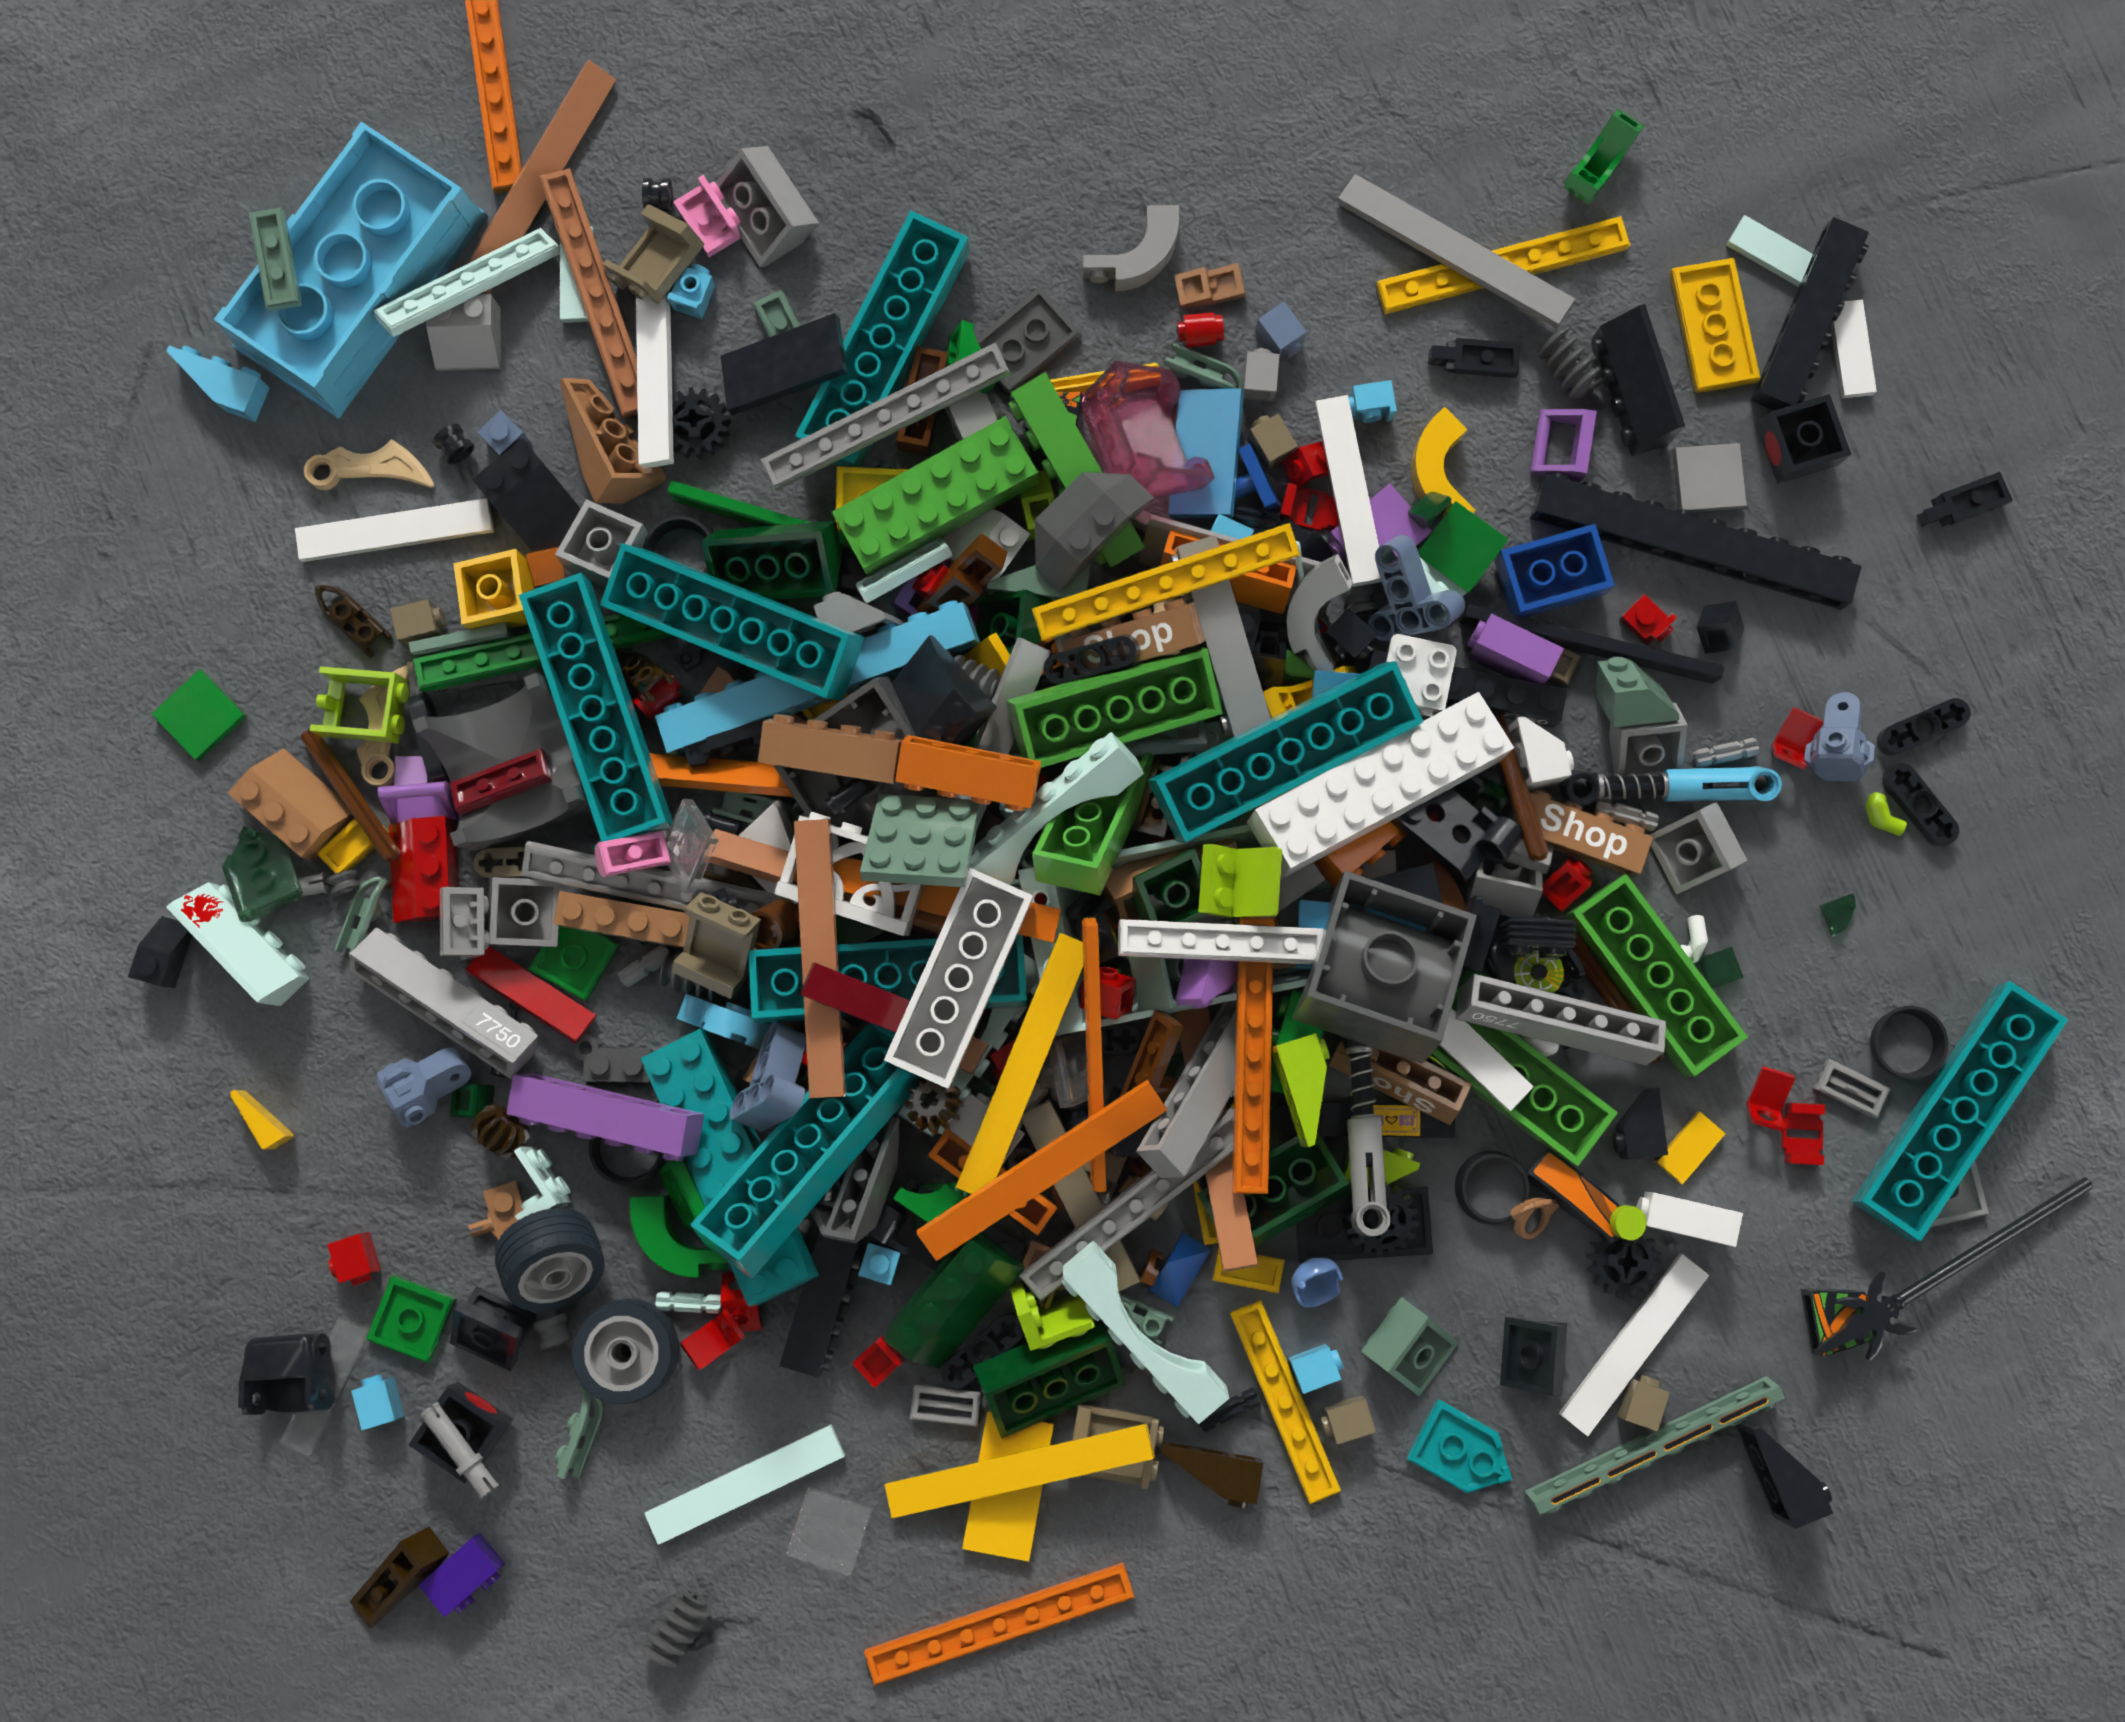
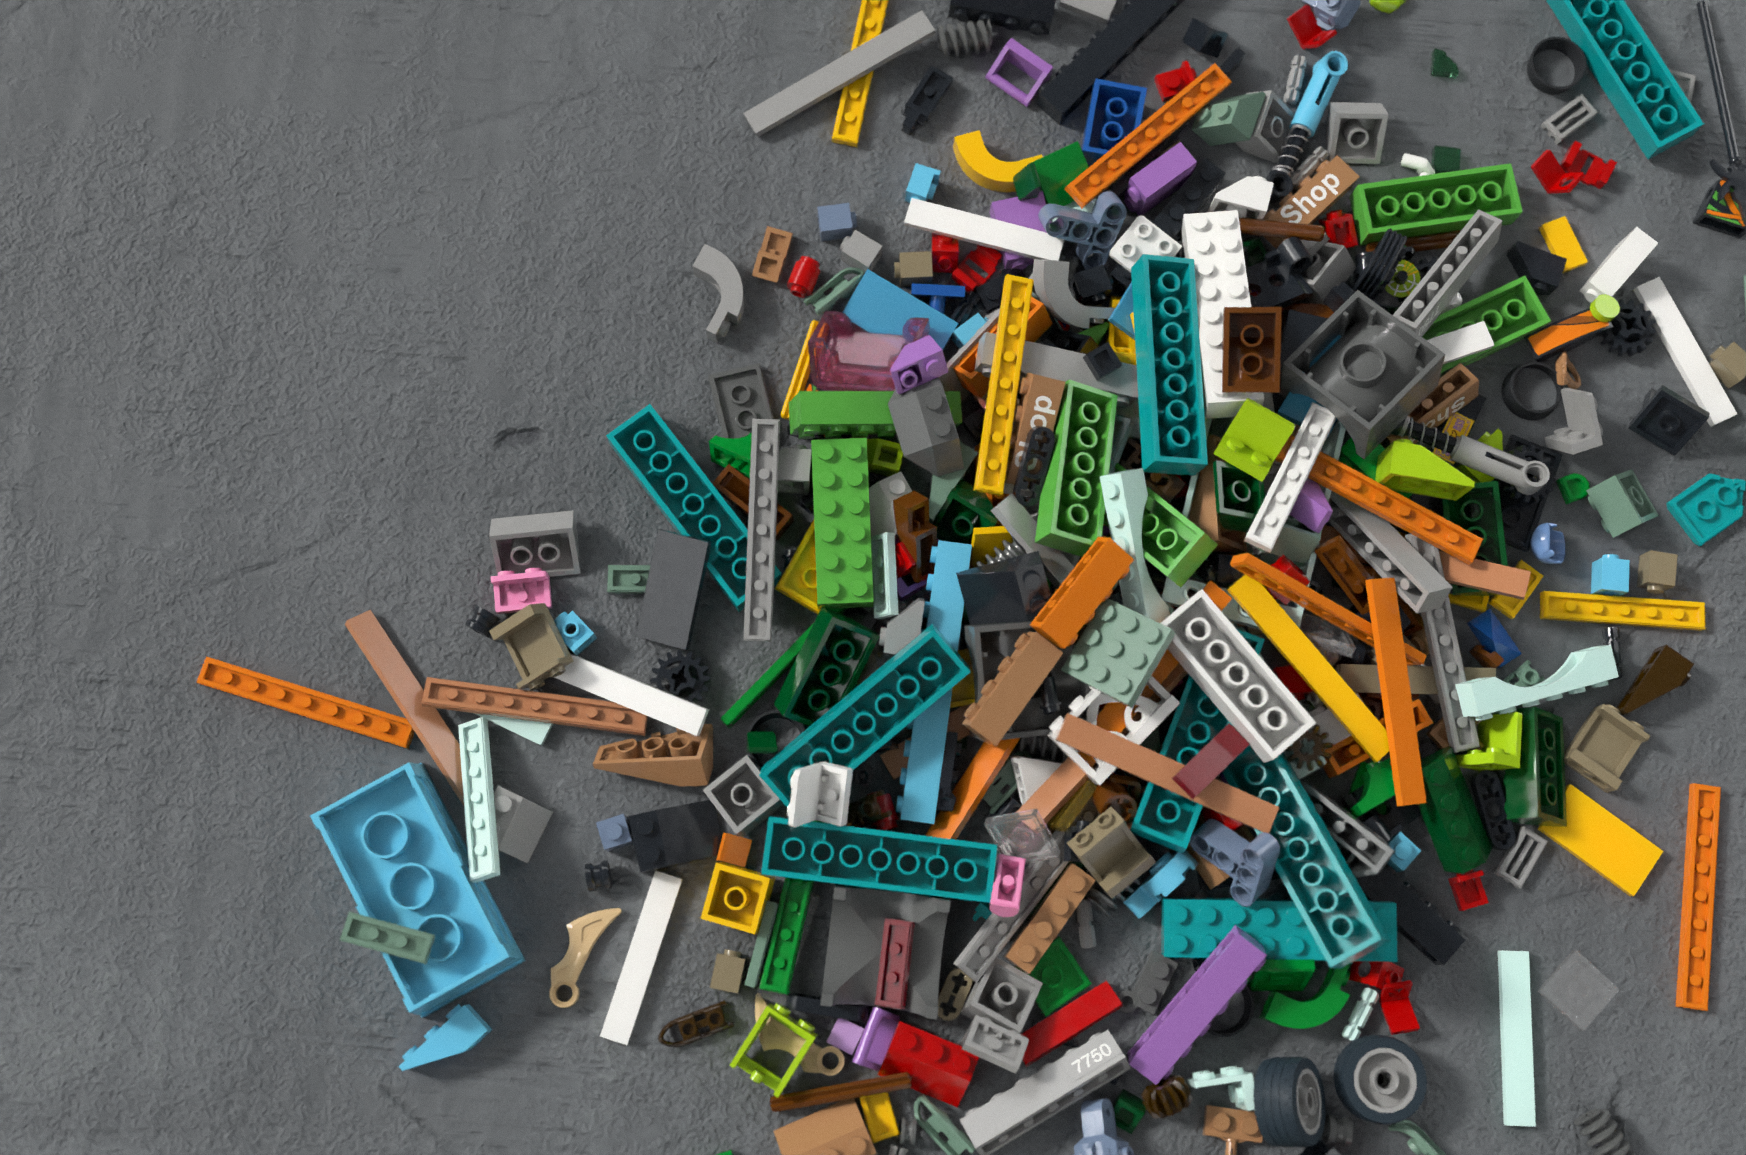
camera: 70 degrees left, 5 degrees down
(626, 607) = (820, 794): none -> white bracket
(665, 534) = (761, 743): none -> dark green slope
(746, 884) = (1070, 810): none -> clear yellow tile
(1019, 1470) = (1598, 824): yellow tile -> none
(1138, 479) = (918, 364): none -> medium lavender slope
(1252, 679) = (1102, 361): none -> black tile
(1338, 825) = (1251, 349): none -> reddish brown slope
(1401, 1283) = (1573, 487): none -> green tile
(1458, 1262) = (1583, 426): none -> light grey bracket
(1558, 613) = (1148, 136): none -> orange tile

